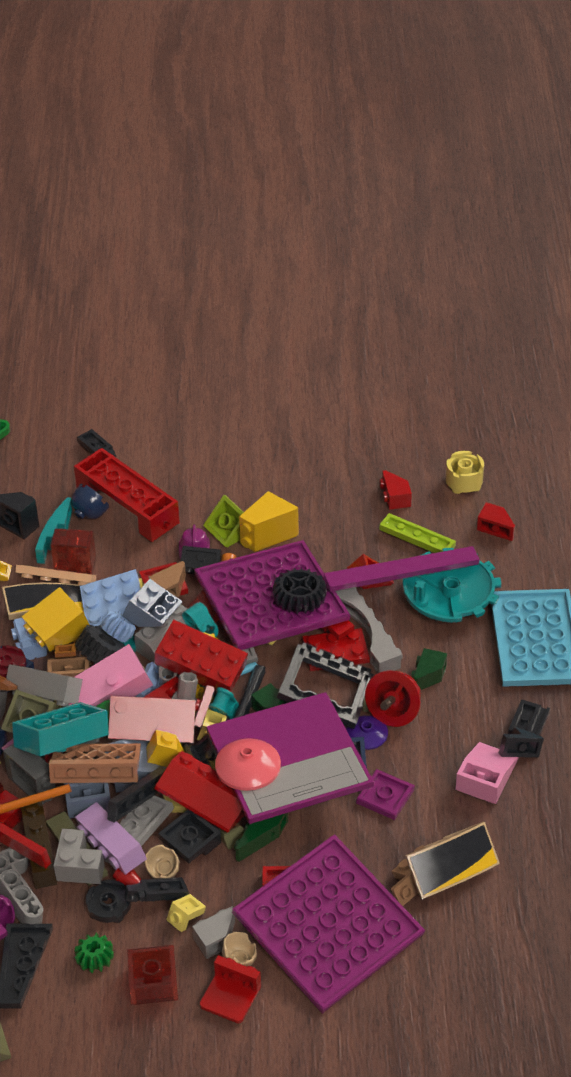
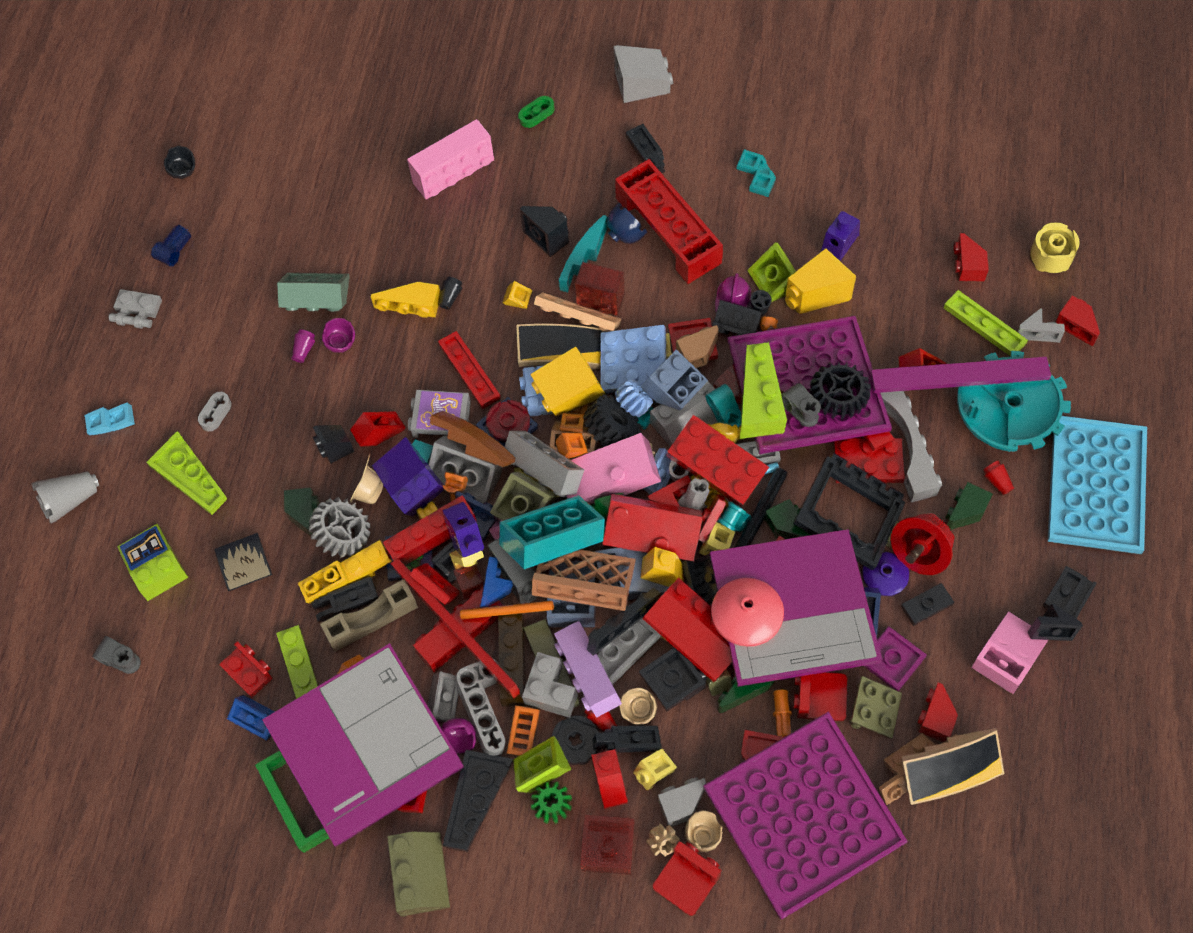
camera: 15 degrees right, 20 degrees up
(14, 785) = (494, 587): none -> blue slope
(58, 885) = (526, 711): none -> orange slope
(67, 666) = (571, 445): none -> orange slope
(78, 923) = (540, 765): none -> lime slope
(83, 392) = (641, 72): none -> light grey slope
(144, 923) = (609, 779): none -> red slope
(202, 964) = (662, 840): none -> tan gear
(205, 457) = (757, 165): none -> teal tile
(218, 542) = (762, 298): none -> black wheel
(232, 604) = (761, 397): none -> lime wedge
(267, 606) = (801, 405): none -> dark grey piece
(282, 482) = (845, 231): none -> dark purple torso
(294, 849) = (782, 712): none -> orange axle
(323, 826) = (821, 694): none -> red bracket
(376, 831) = (875, 707): none -> olive hinge
(407, 748) = (927, 604): none -> black plate
(434, 825) = (940, 715): none -> red slope
(450, 644) = (998, 477): none -> red cone
(465, 533) = (1035, 330): none -> light grey slope

